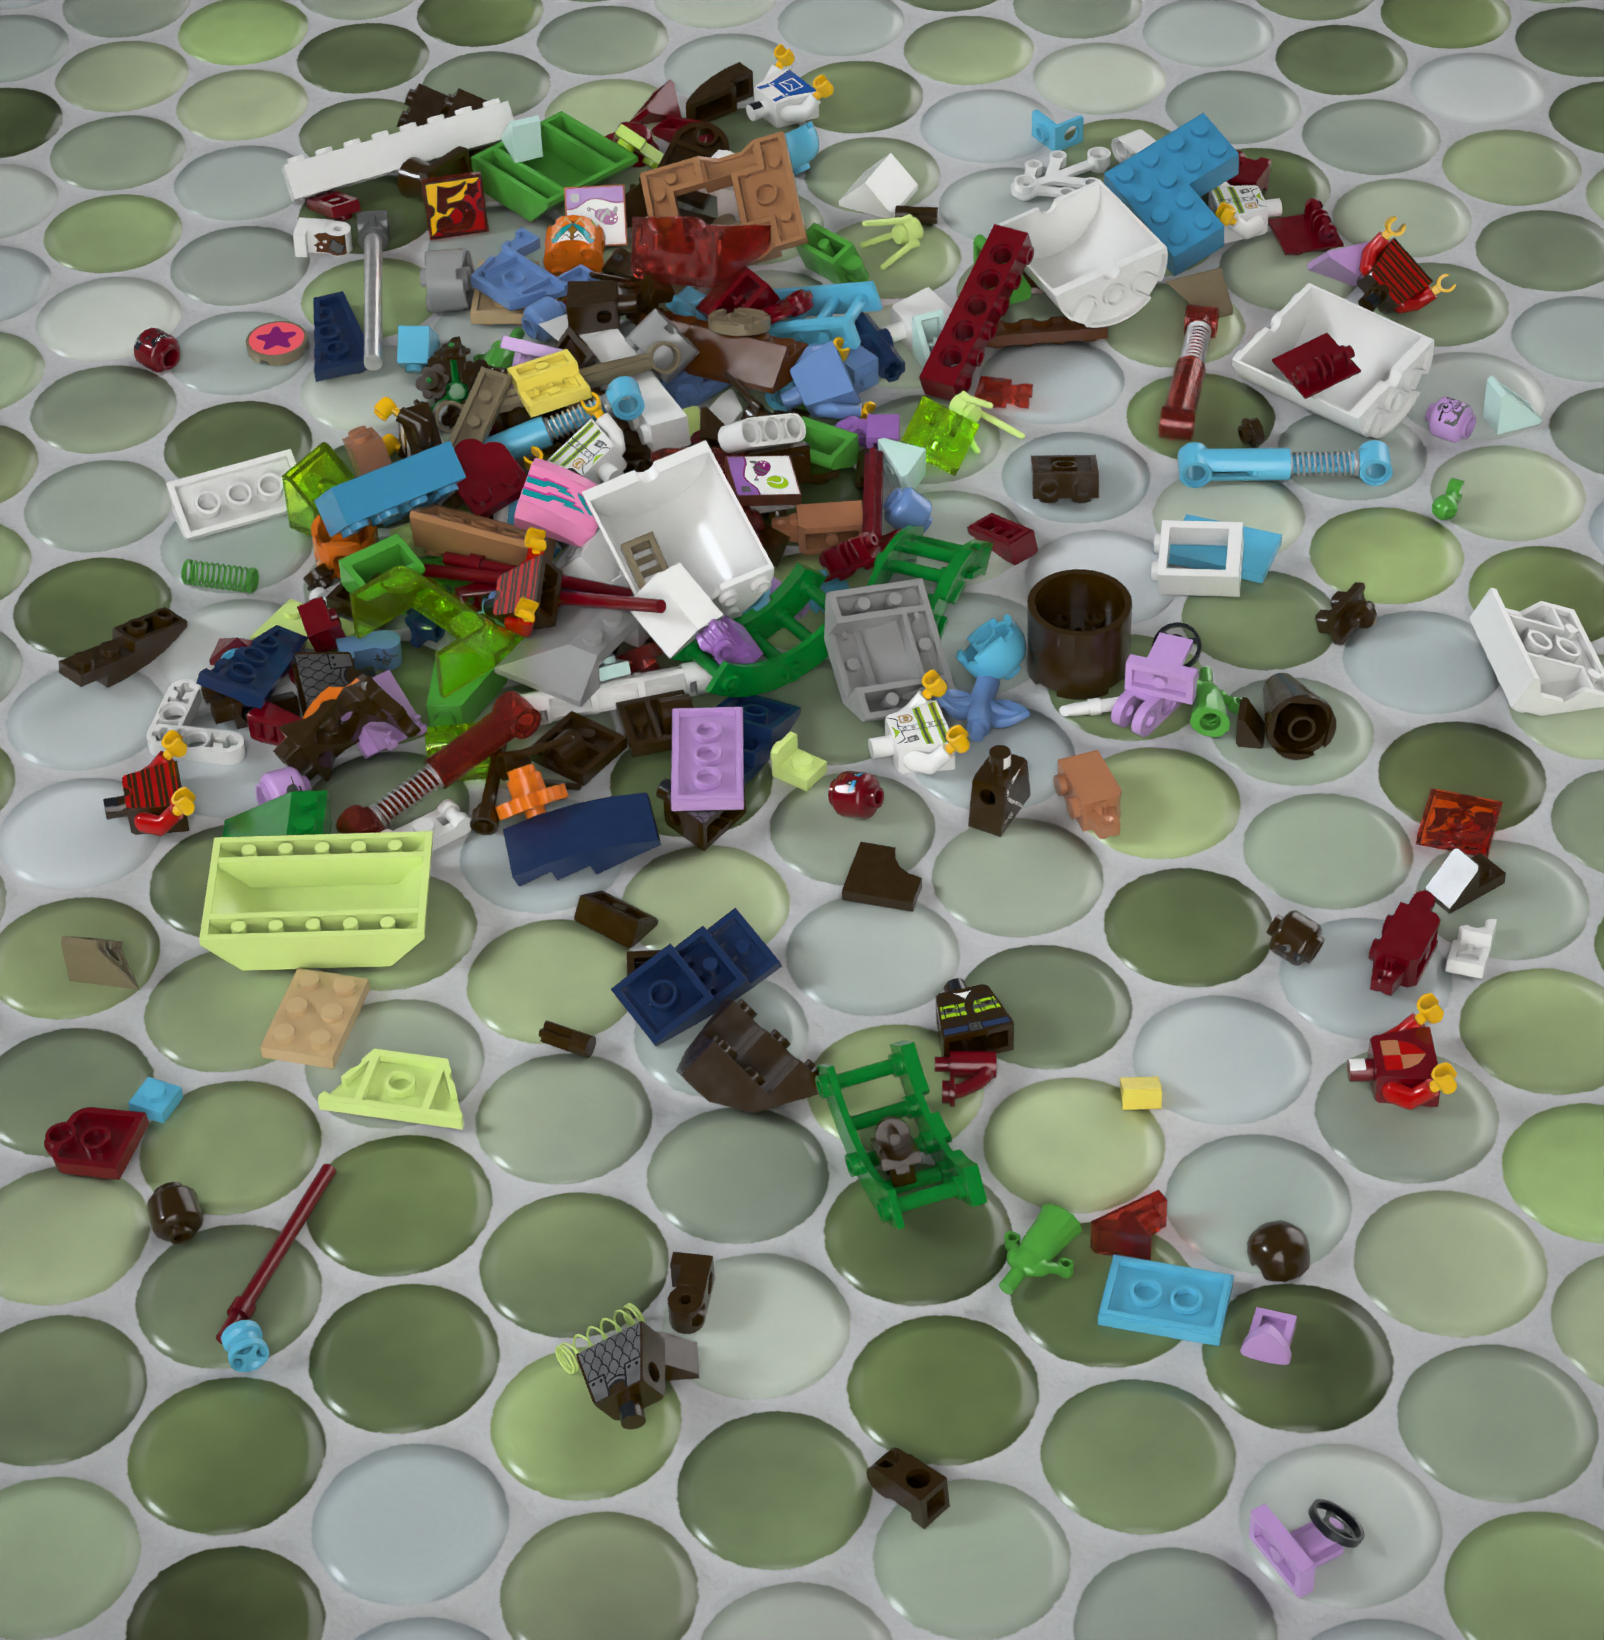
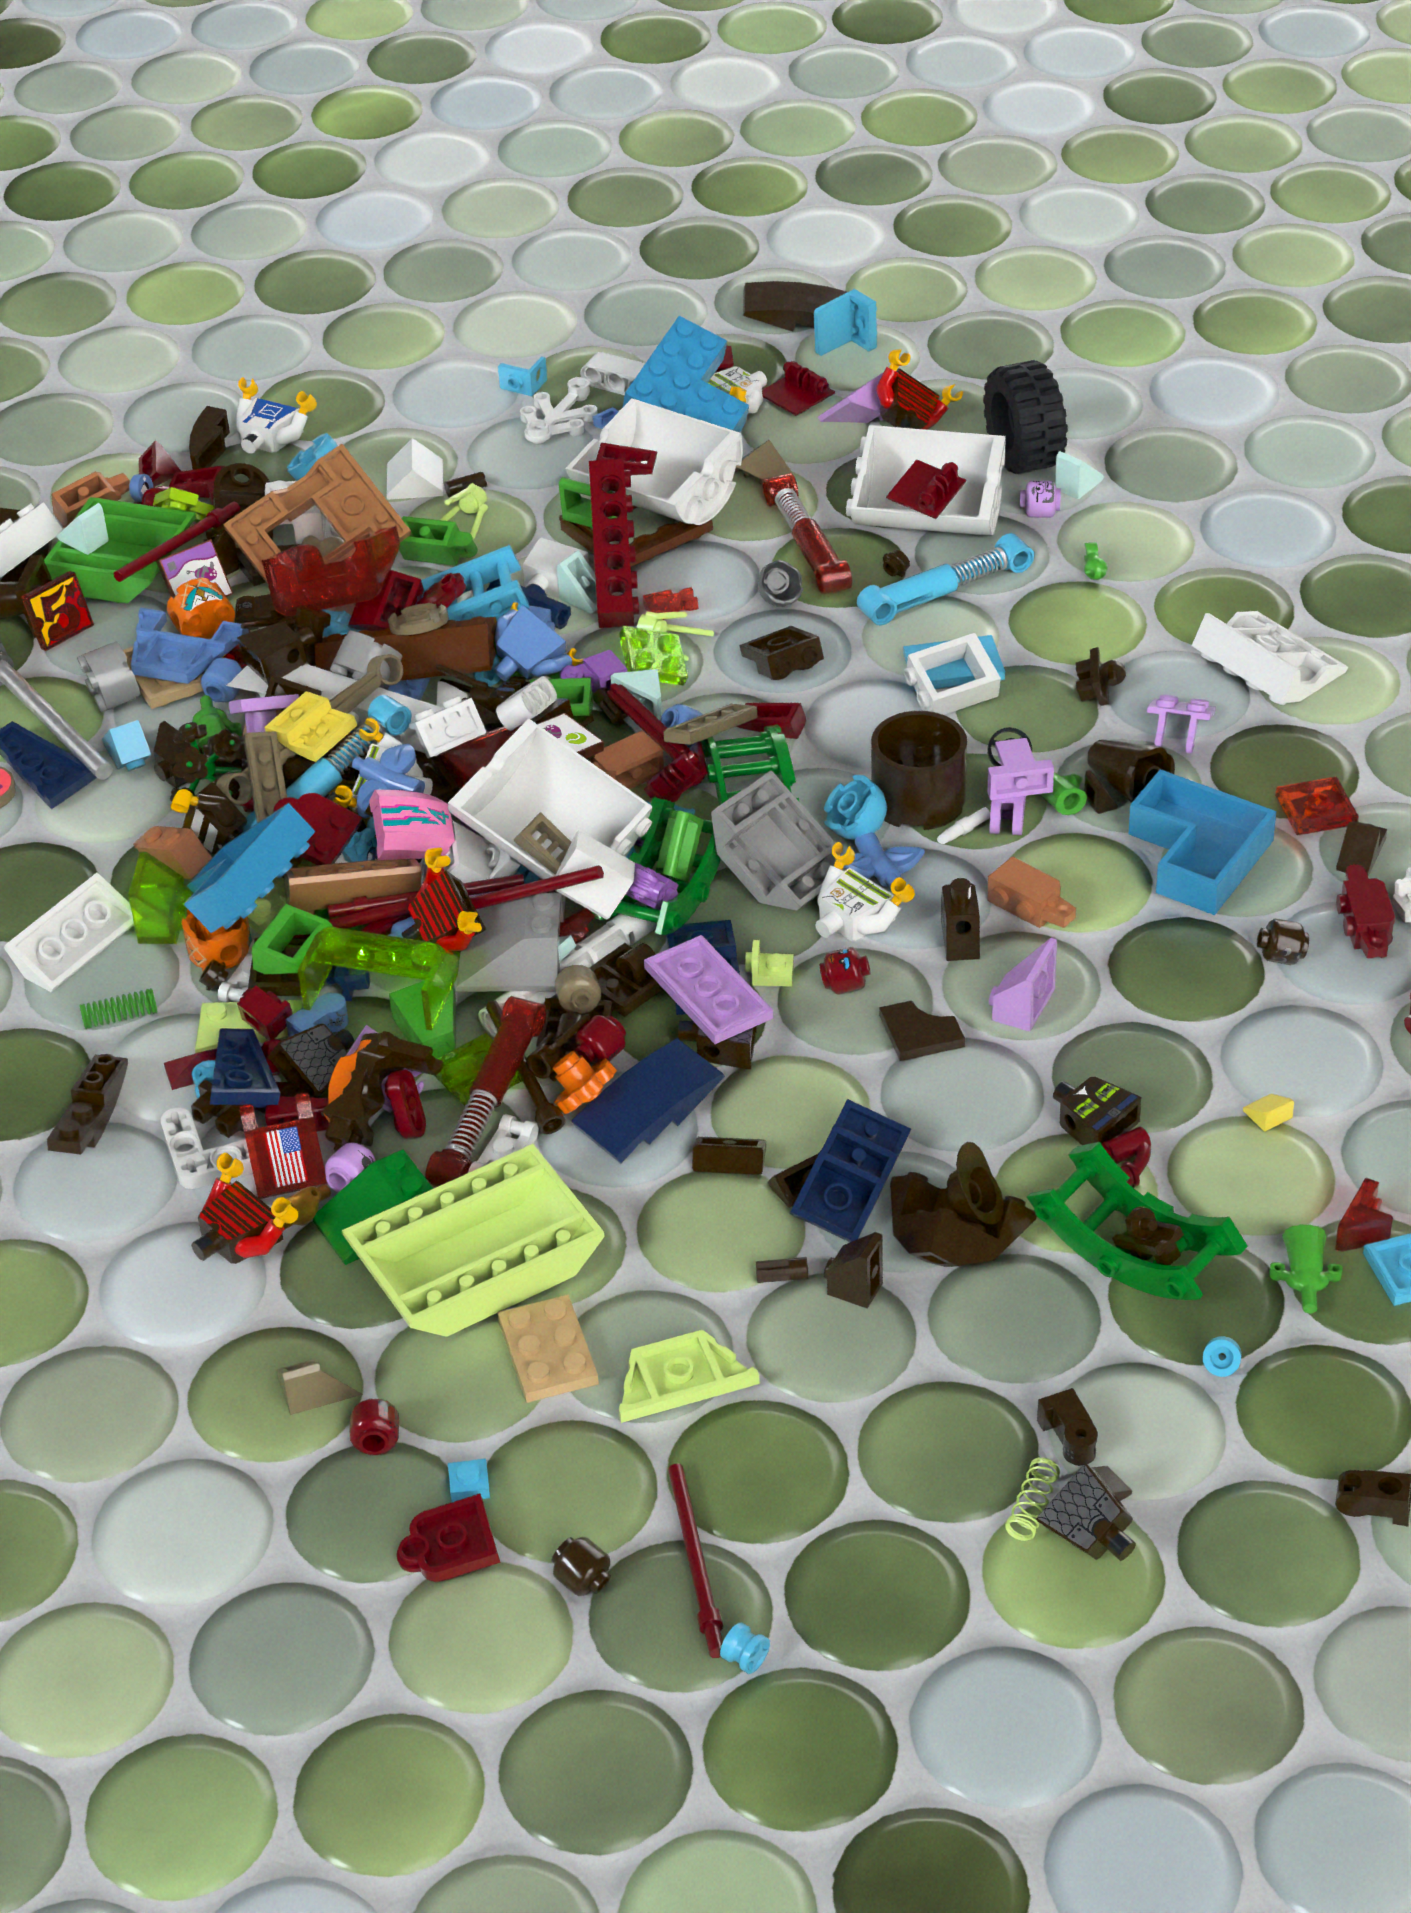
camera: 30 degrees left, 0 degrees up
(113, 1018) = (374, 1426): none -> dark red head
(217, 805) = (307, 1203): none -> pearl gold piece
(238, 752) = (284, 1154): none -> clear red flag
(369, 752) = (406, 1104): none -> dark red plate
(573, 765) = (600, 1039): none -> dark red head
(575, 104) = (71, 499): none -> nougat hinge
(578, 450) = (386, 774): none -> medium blue plant
(589, 177) = (213, 519): none -> dark red bar
(595, 712) = (577, 986): none -> dark tan head
(621, 1069) = (856, 1271): none -> dark brown slope
(623, 114) = (138, 485): none -> medium blue tile
(666, 428) = (448, 727): none -> white bracket
(768, 1031) = (973, 1188): none -> dark brown piece
(791, 617) = (679, 845): none -> bright green tile
(882, 1293) = (1222, 1364): none -> medium azure tile
(923, 517) = (710, 724): none -> dark tan tile
(1006, 880) = (1026, 988): none -> lavender slope
(1042, 232) = (631, 456): none -> dark red slope
(1117, 410) = (780, 583): none -> dark grey hair
(1307, 809) = (1208, 836): none -> dark azure piece
(1380, 145) = (785, 302): none -> dark brown slope
(1400, 176) = (846, 320): none -> medium azure bracket
(1406, 682) = (1169, 704): none -> lavender plate
(1480, 327) = (1029, 410): none -> black tyre

